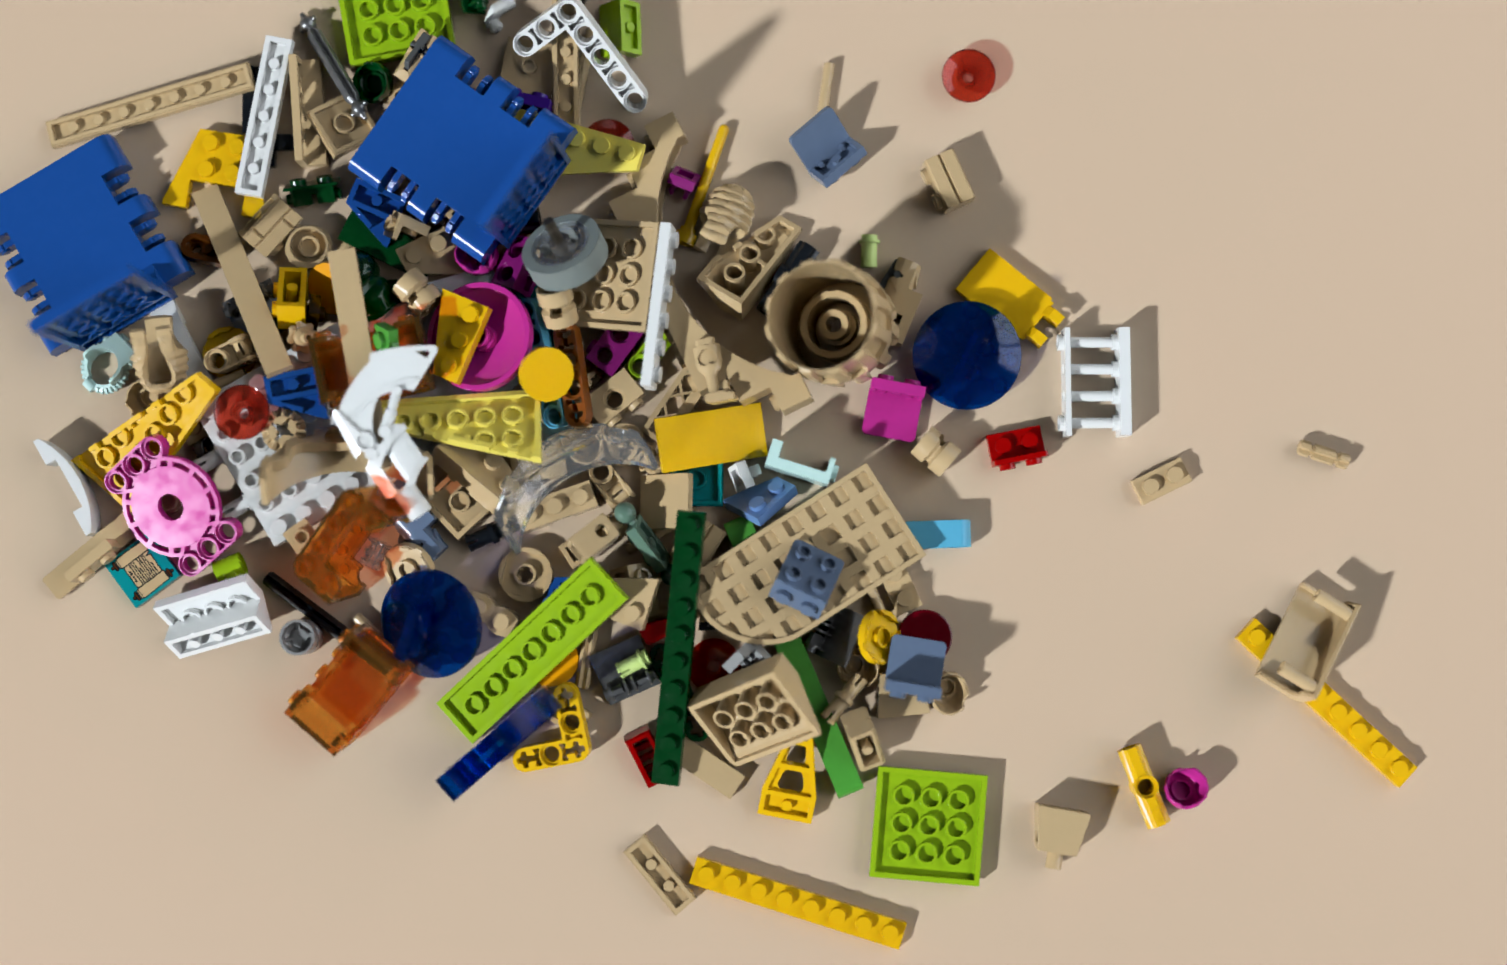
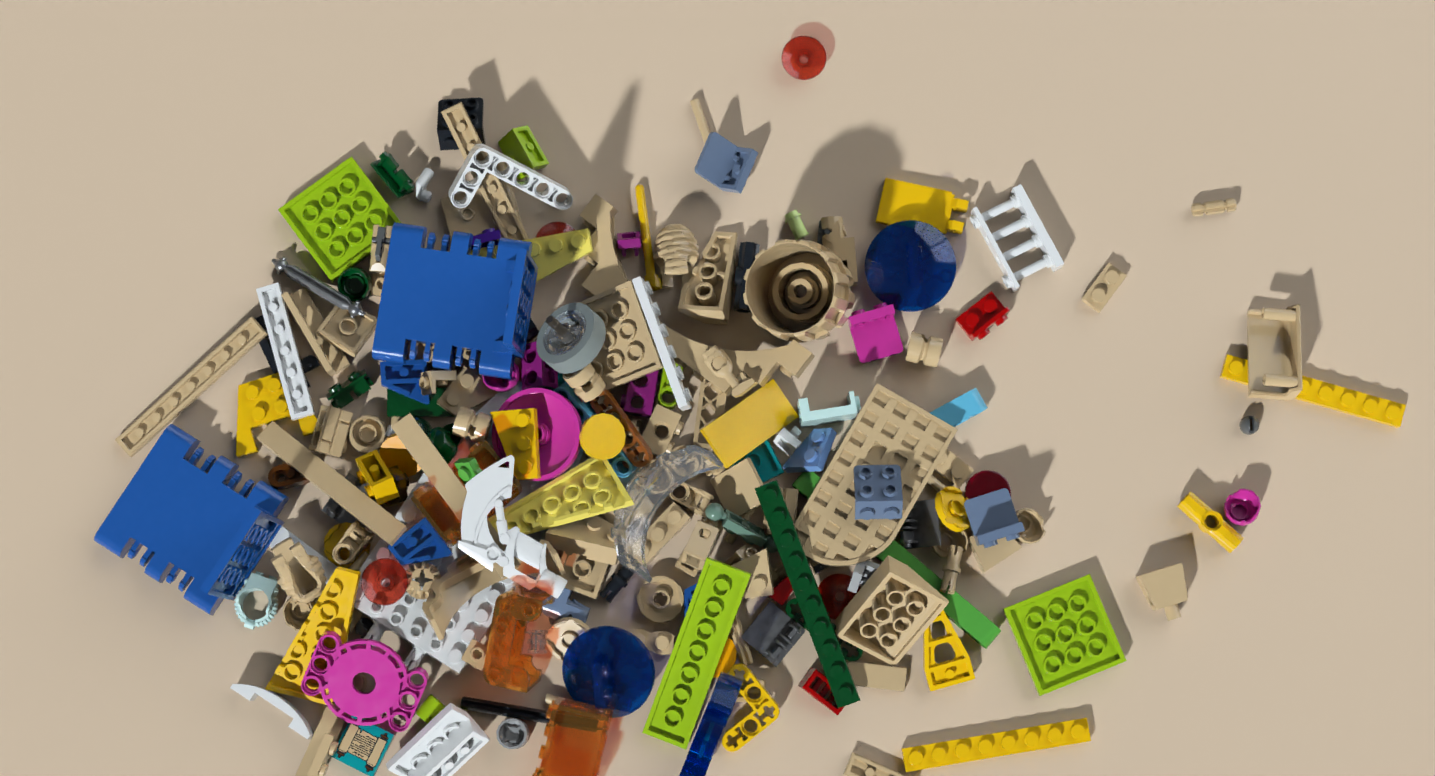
camera: 25 degrees left, 5 degrees down
(299, 336) = (400, 502): tan plant -> none
(633, 663) = (778, 624): yellowish green pin -> none
(863, 738) = (981, 592): tan brick -> none
(947, 181) = (828, 143): tan brick -> none
(1235, 701) = (1245, 425): none -> dark grey hinge

